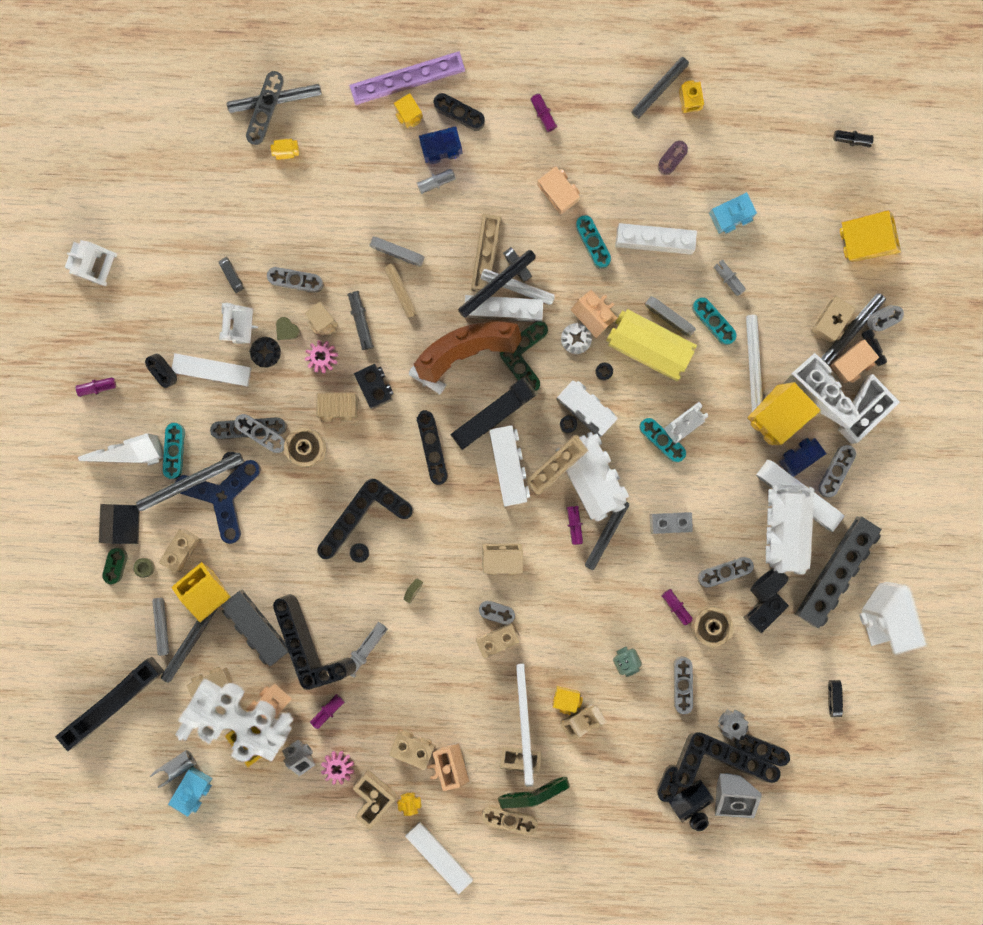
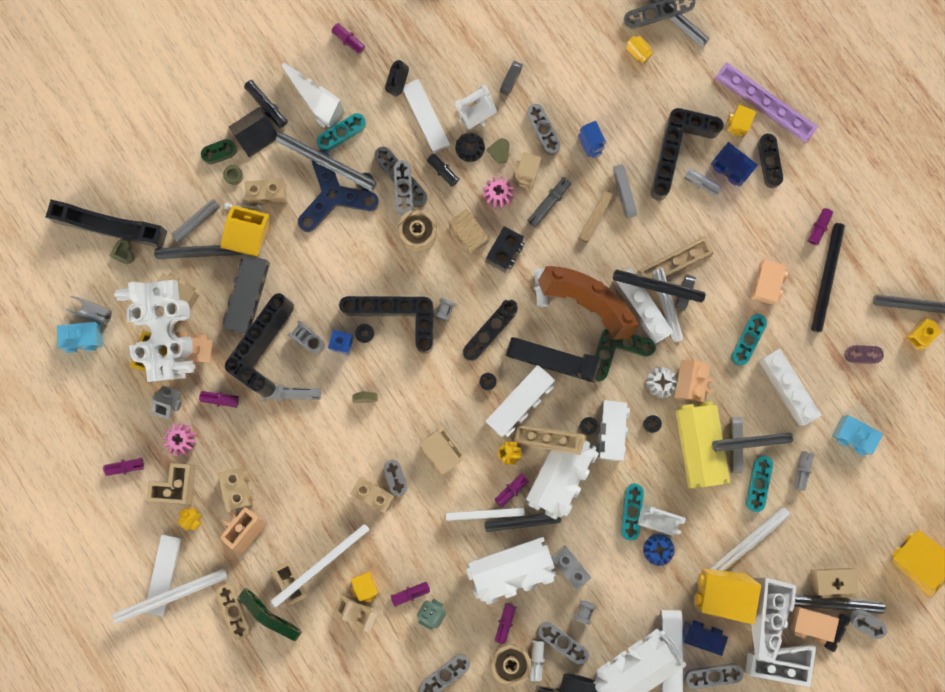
camera: 50 degrees right, 5 degrees down
(110, 496) = (271, 110): none -> black pin
(143, 706) = (122, 252): none -> olive tile
(167, 591) = (257, 207): none -> white hinge
(268, 388) = (442, 169): none -> black axle
(326, 604) = (304, 336): none -> light grey piece
(327, 829) = (123, 467): none -> magenta axle
(334, 246) = (592, 139): none -> blue brick
(353, 578) = (341, 342): none -> blue brick
(387, 472) = (444, 309): none -> light grey bush
(389, 182) = (673, 146): none -> black beam
(460, 865) = (169, 596): none -> white axle
(476, 485) = (488, 375): none -> black bush
(544, 504) = (509, 453): none -> yellow gear
(578, 561) = (483, 514): none -> white tile
(589, 138) = (828, 277): none -> black axle
(599, 666) = (410, 593): none -> magenta axle
(639, 572) = (510, 570): none -> white brick
(677, 302) = (756, 441): none -> dark grey axle
(705, 432) = (651, 544): none -> blue gear
(714, 536) = (585, 612): none -> light grey bush
(724, 603) = (537, 660): none -> white axle

